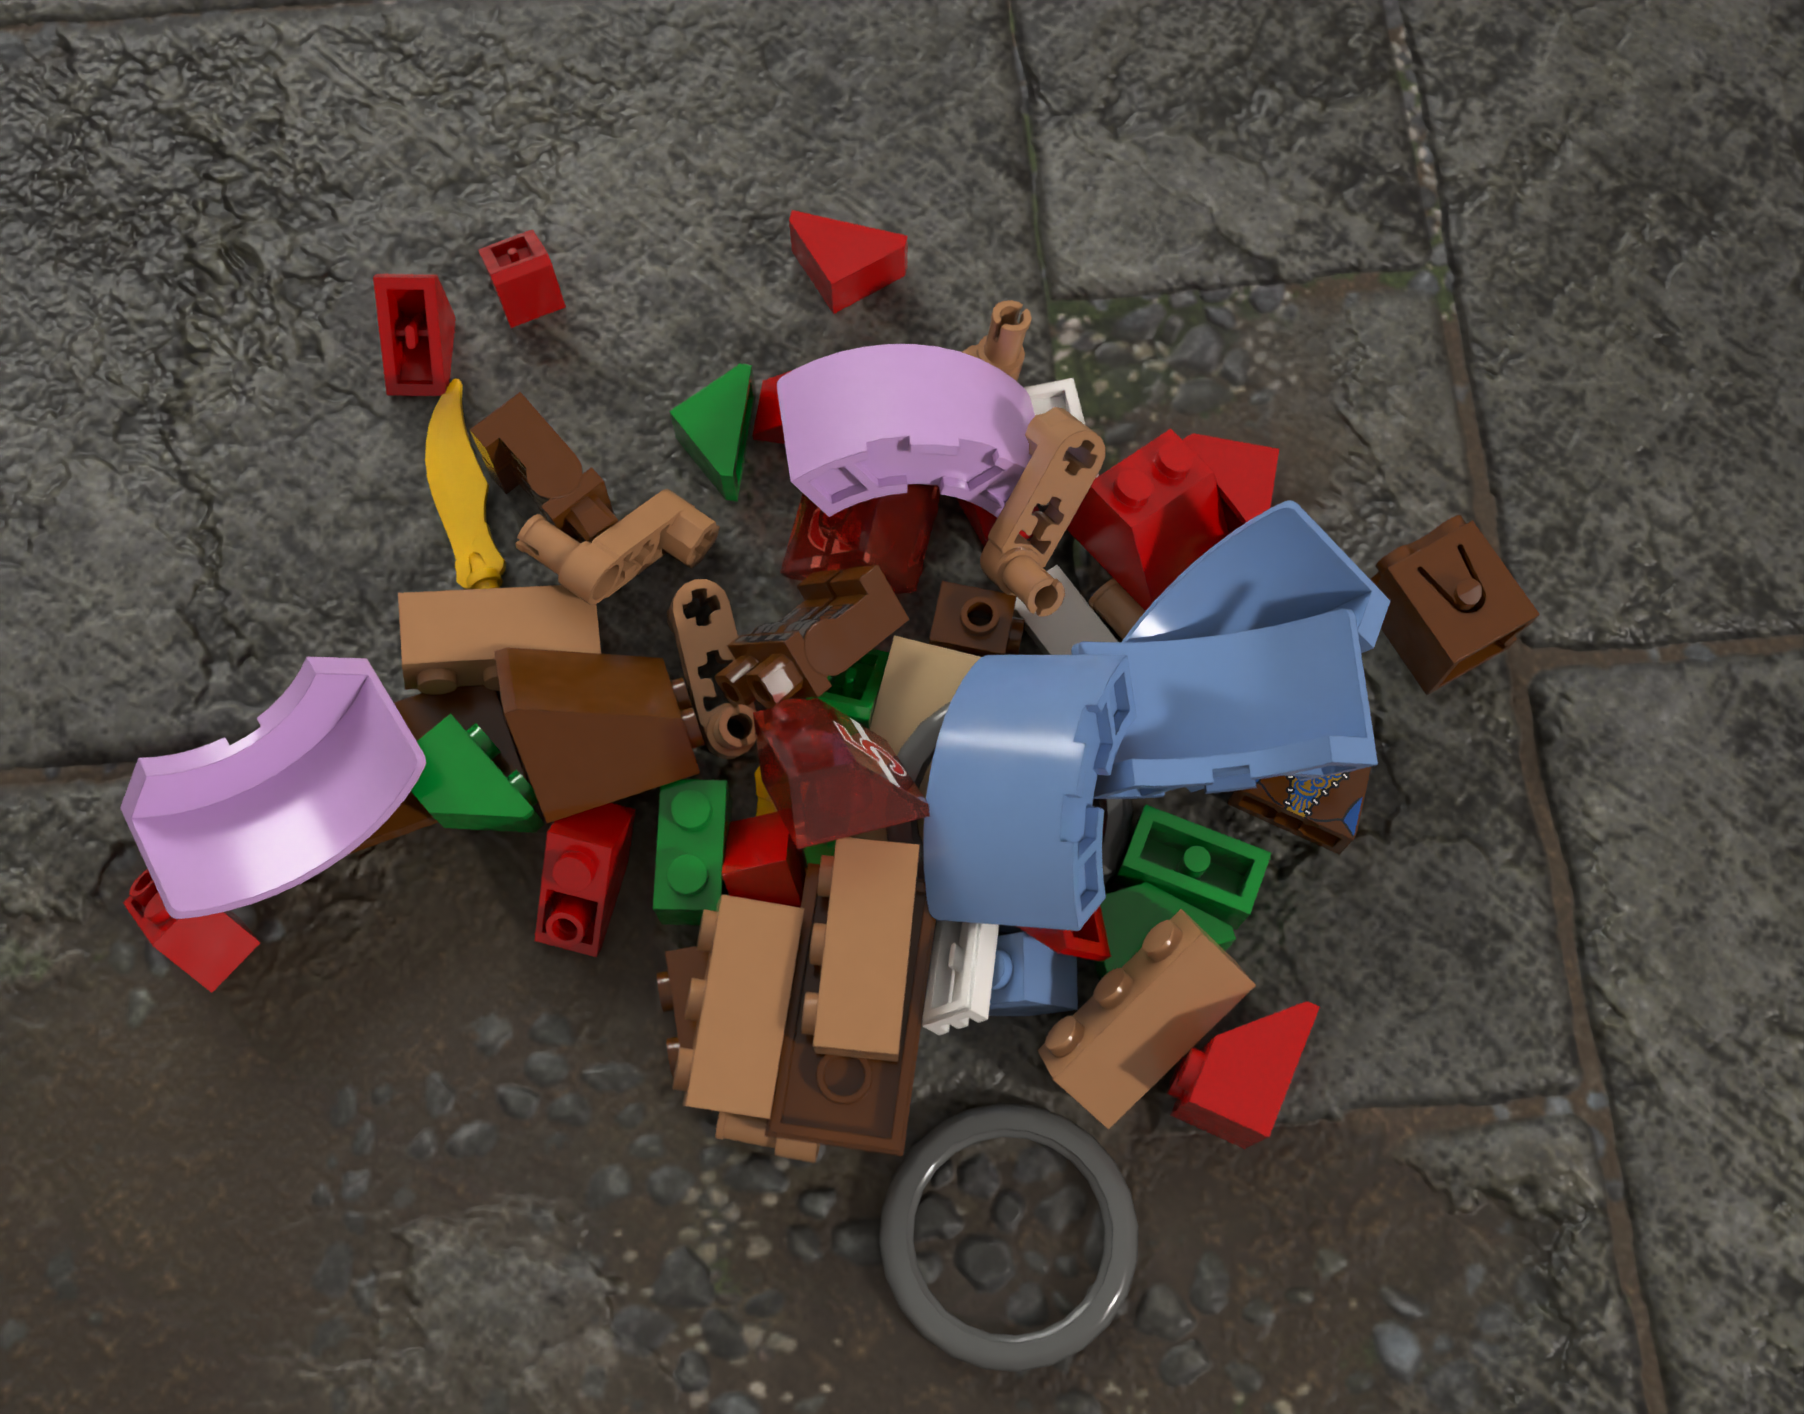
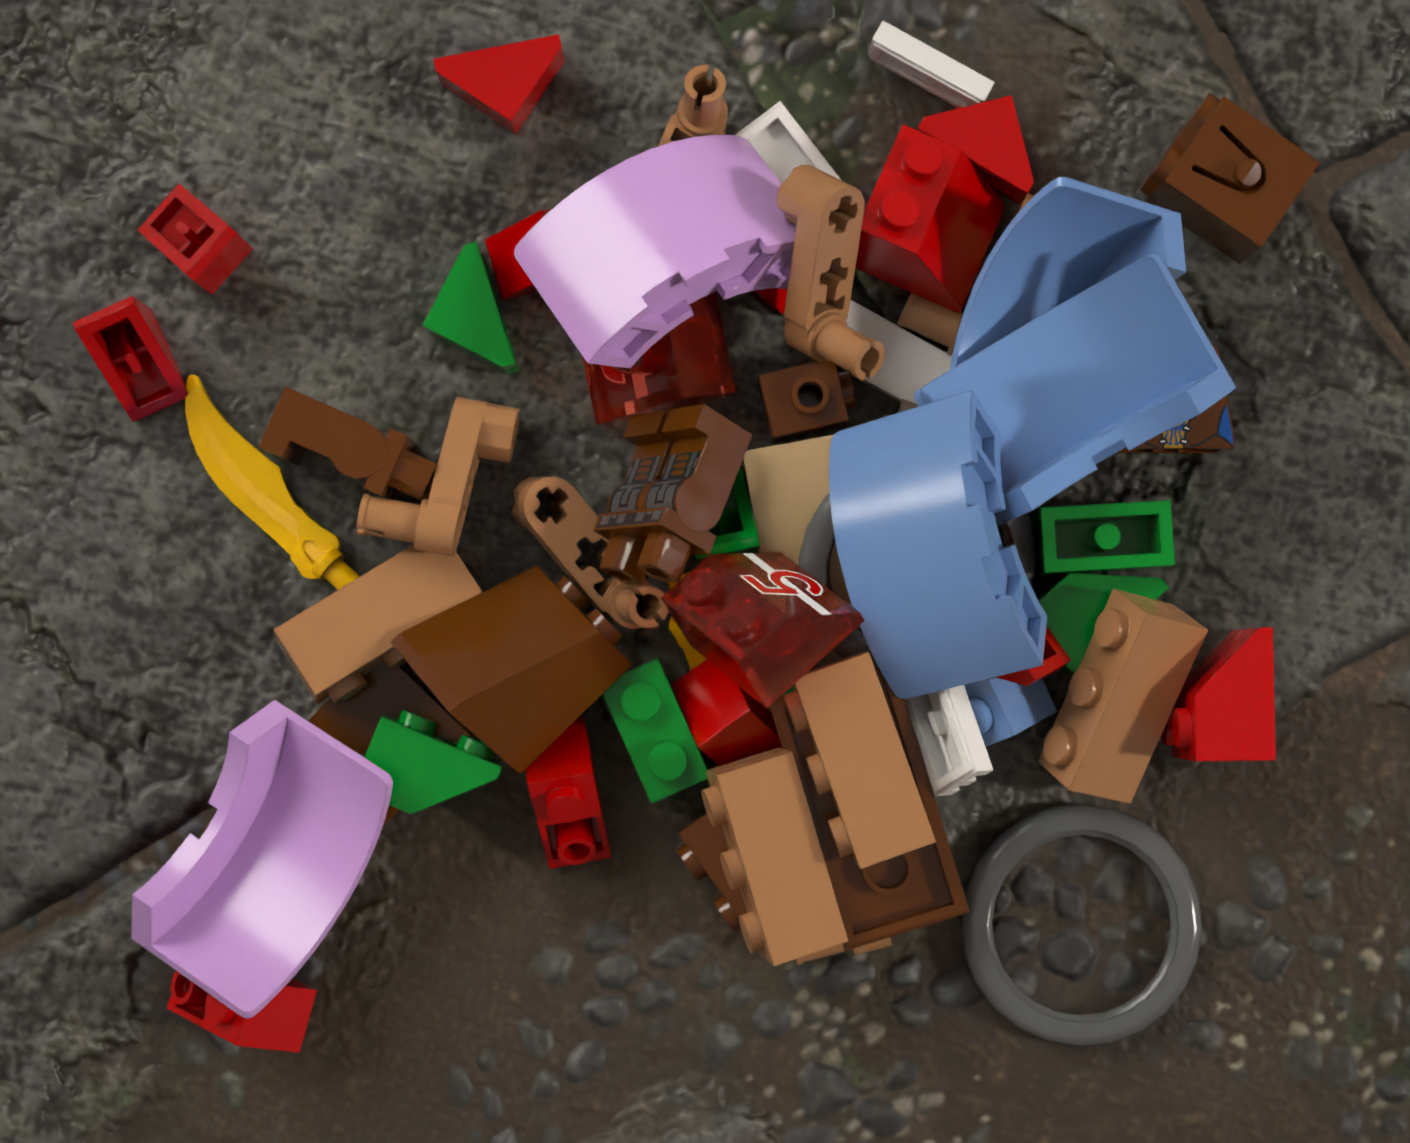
camera: 25 degrees left, 15 degrees up
(1213, 398) = (928, 67): none -> white tile

